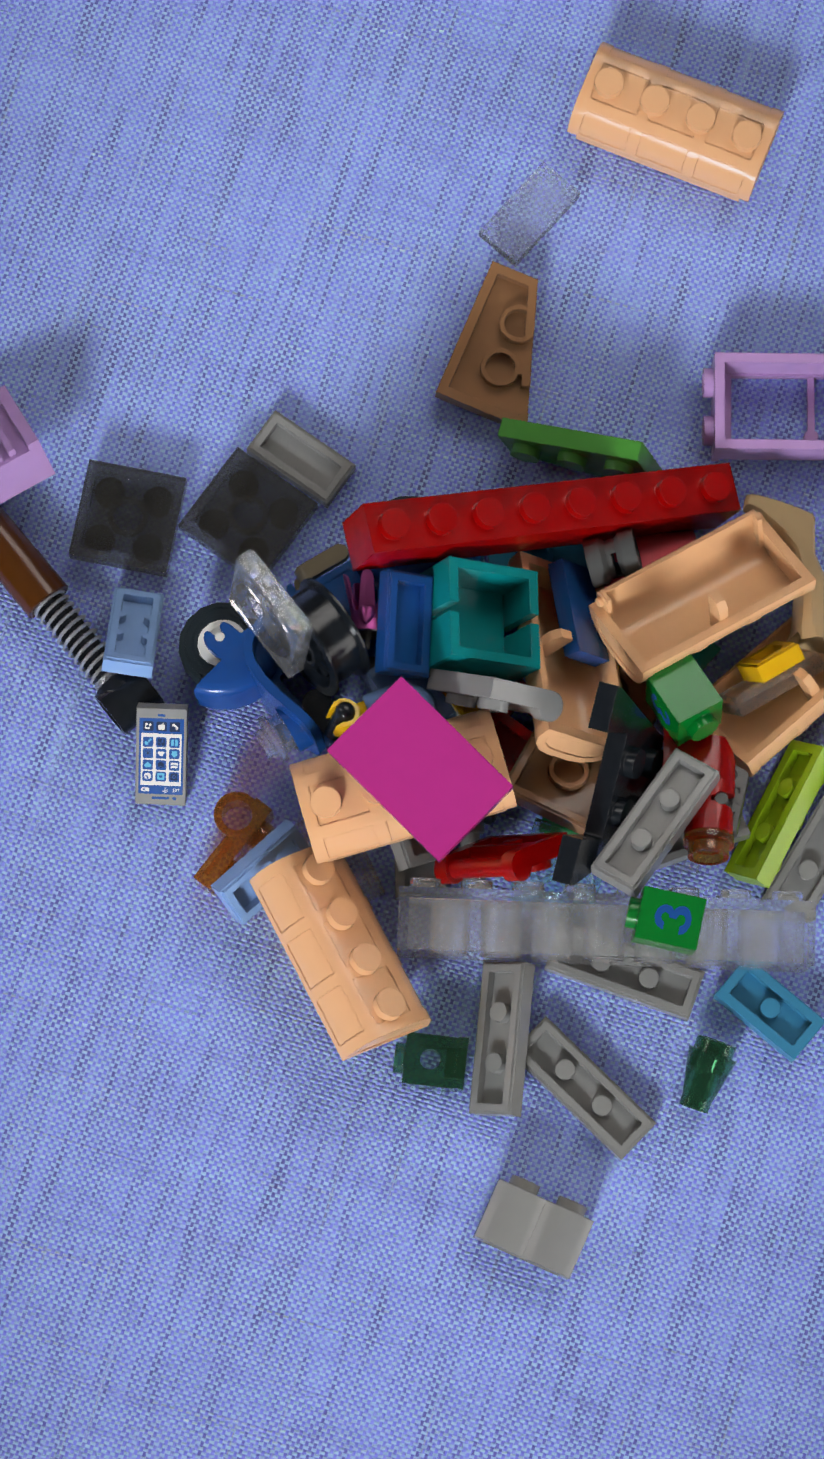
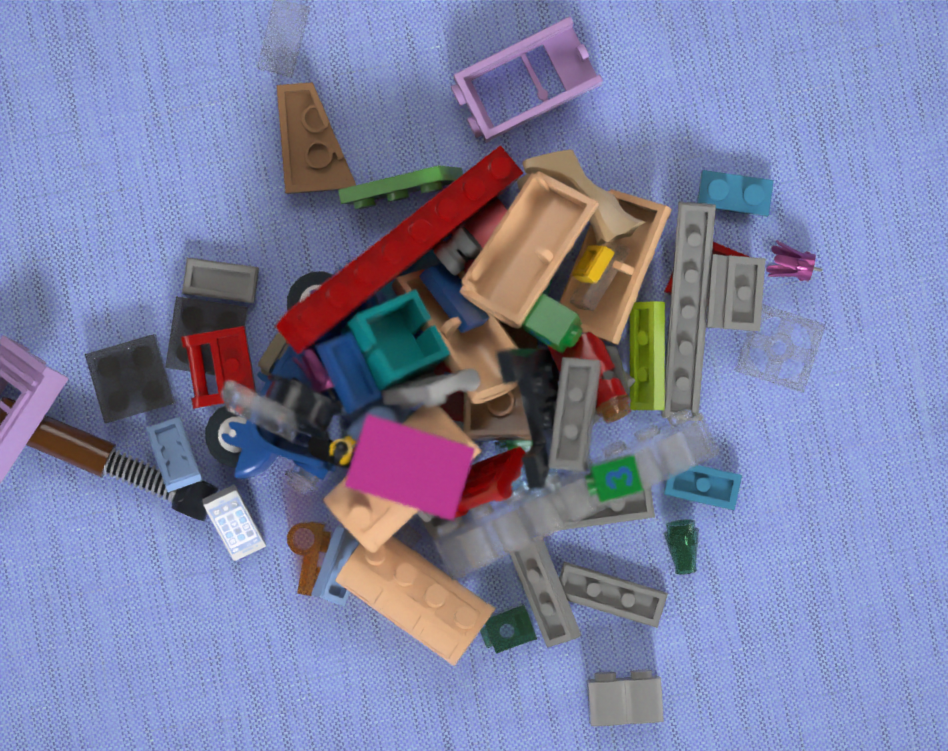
camera: 30 degrees left, 10 degrees up
(267, 533) = (230, 362): none -> red plate

